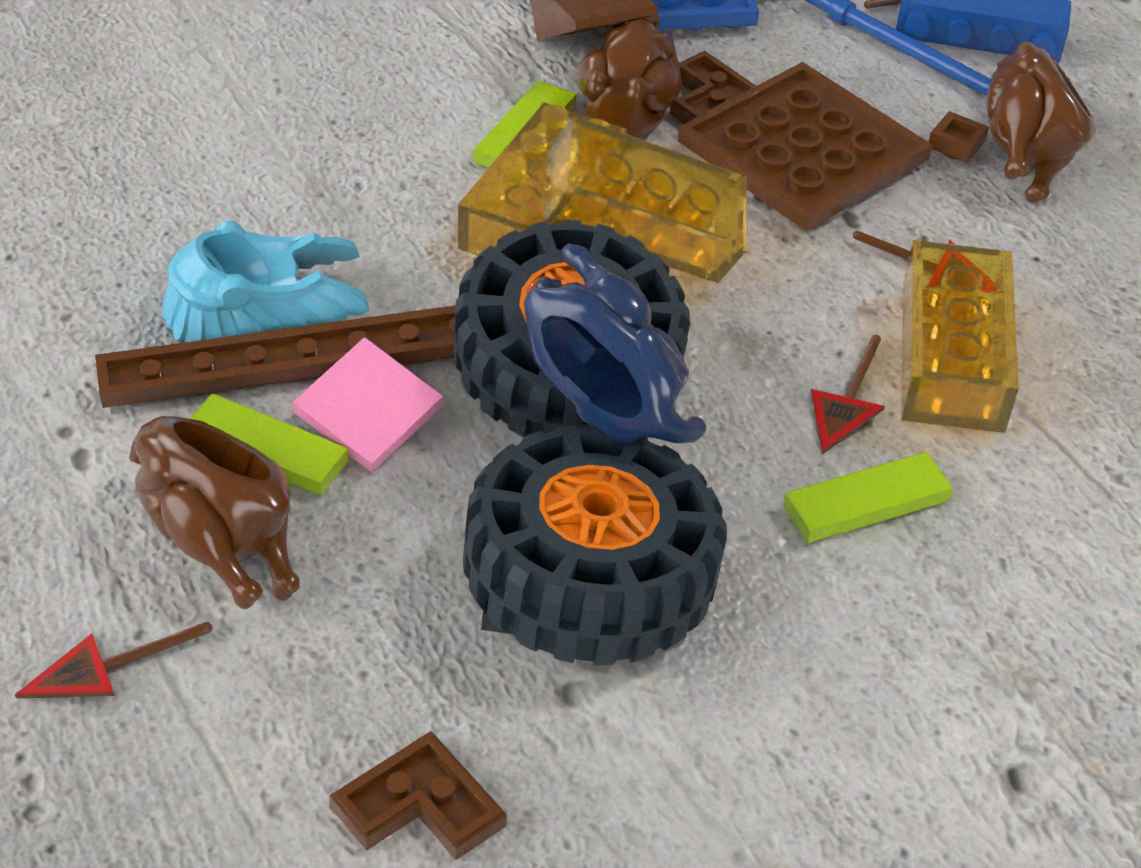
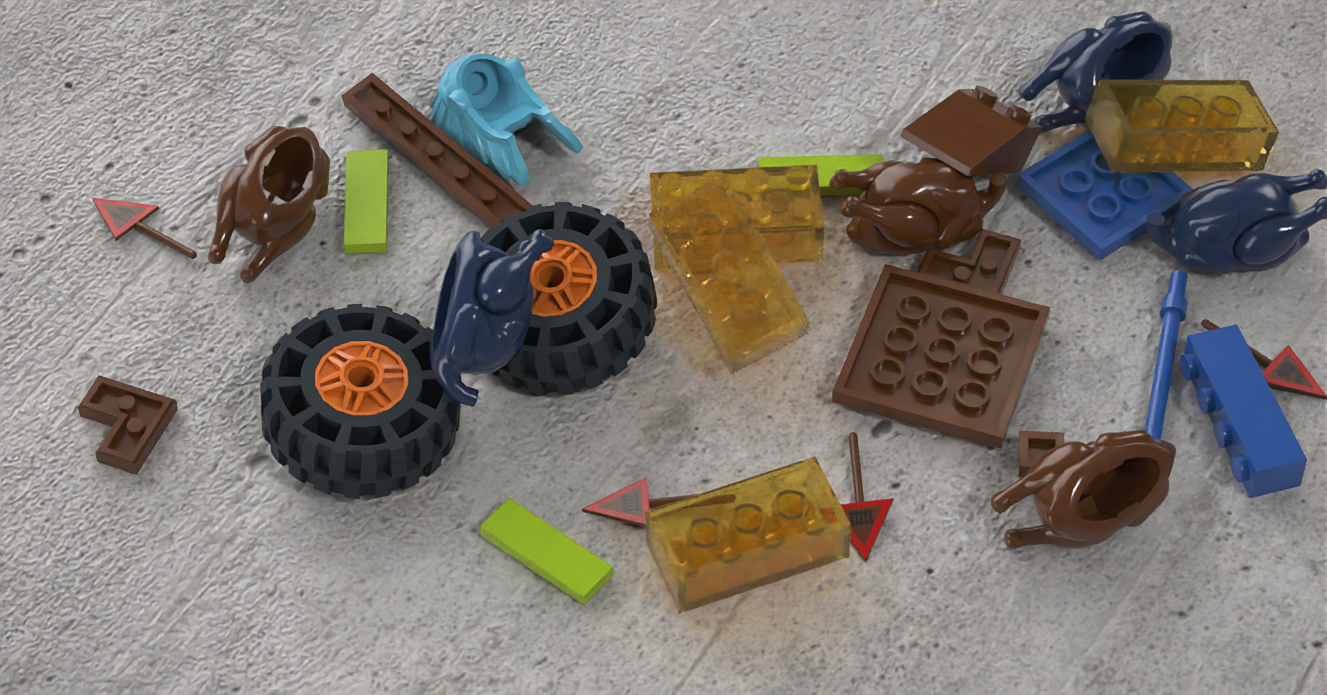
camera: 65 degrees right, 5 degrees up
(368, 404) = (427, 229): bright pink tile -> none

